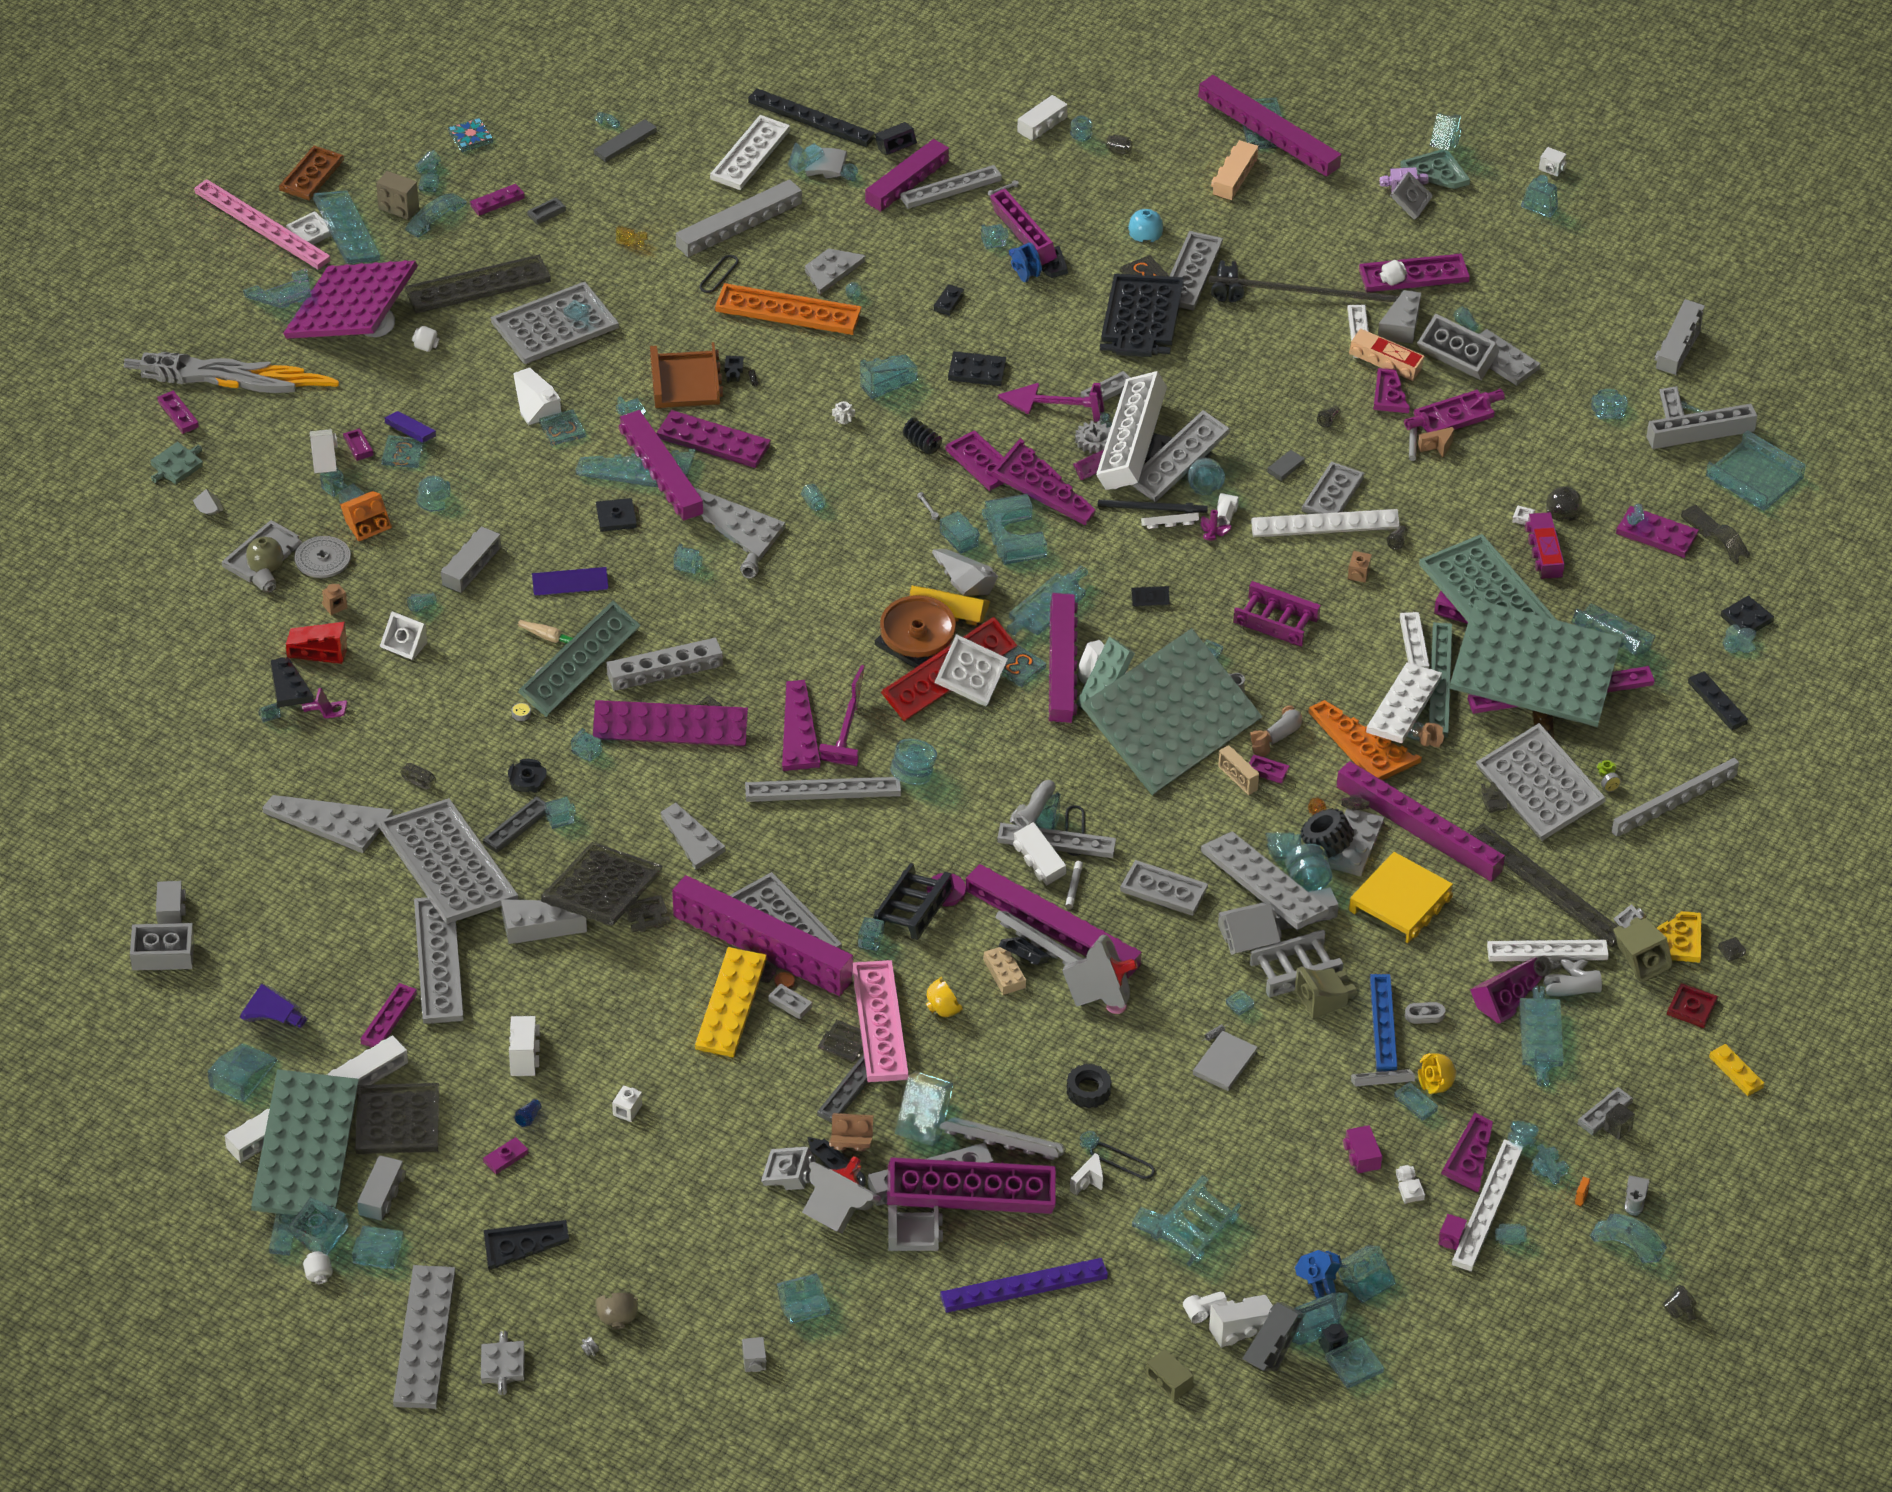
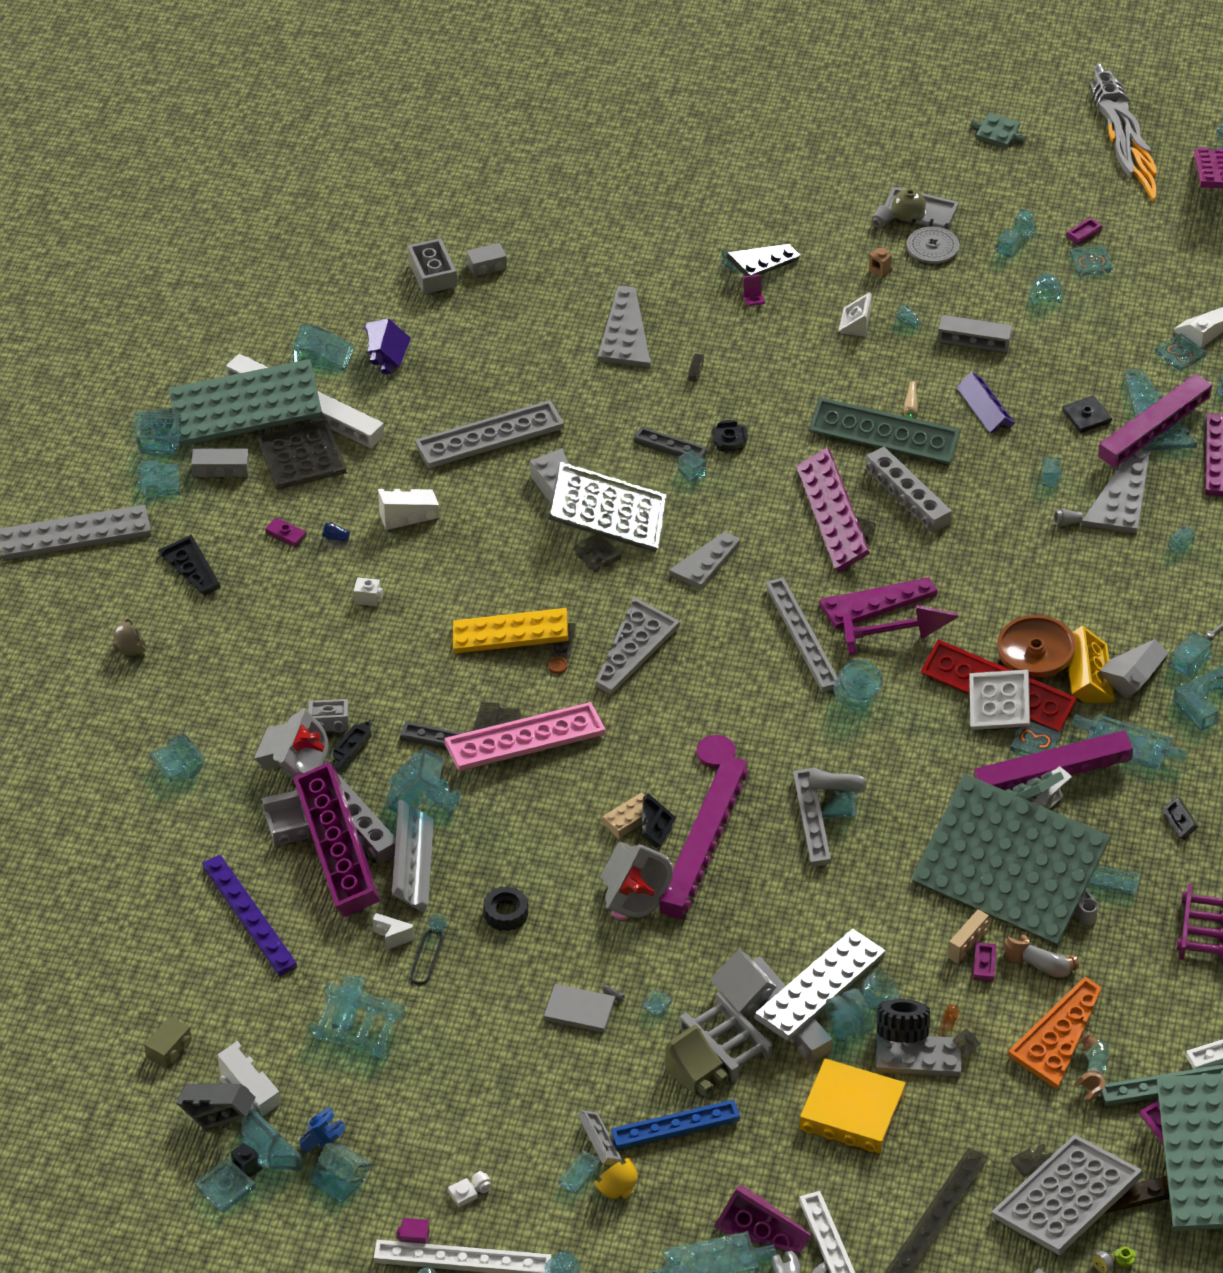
camera: 75 degrees right, 0 degrees up
(178, 412) = (1058, 114): magenta plate -> none
(208, 503) = (959, 161): light grey brick -> none
(317, 1267) = (122, 447): white head -> none
(318, 643) = (821, 267): red wedge -> none
(323, 451) = (1046, 199): white wedge -> none
(366, 515) = (990, 254): orange slope -> none
(389, 1015) = (413, 420): magenta plate -> none
(410, 427) = (1120, 254): dark purple tile -> none
(447, 860) = (600, 408): light grey plate -> none
(502, 1362) = (58, 585): light grey plate -> none
(521, 711) = (806, 413): tile -> none
(586, 745) = (782, 462): clear light blue brick -> none
(589, 1346) = (89, 635): light grey plate -> none
(754, 1354) = (108, 742): light grey brick -> none
(763, 934) = (591, 629): magenta brick -> none
(790, 1001) = (529, 672): light grey plate -> none
(851, 1131) = (381, 751): medium nougat bracket -> none
(870, 934) = (632, 707): clear light blue brick -> none
(924, 912) = (681, 738): black fence -> none
(942, 999) = (570, 775): yellow cylinder -> none
(1038, 939) = (680, 825): light grey plate -> none
(1039, 854) = (781, 803): white brick -> none
(1073, 885) = (762, 844): light grey bar -> none
(1083, 823) = (848, 836): black piece -> none
(1164, 887) = (785, 912): light grey plate -> none
(1200, 1308) = (258, 1050): white piece -> none
(1362, 1149) = (498, 1139): magenta piece -> none
(1404, 702) = (1120, 1049): white plate -> none
(1421, 821) = (964, 1102): magenta brick -> none
(1425, 1012) = (702, 1159): light grey plate -> none
(1469, 1154) = (524, 1230): magenta wing -> none
(1544, 966) = (803, 1248): clear smoke cone -> none

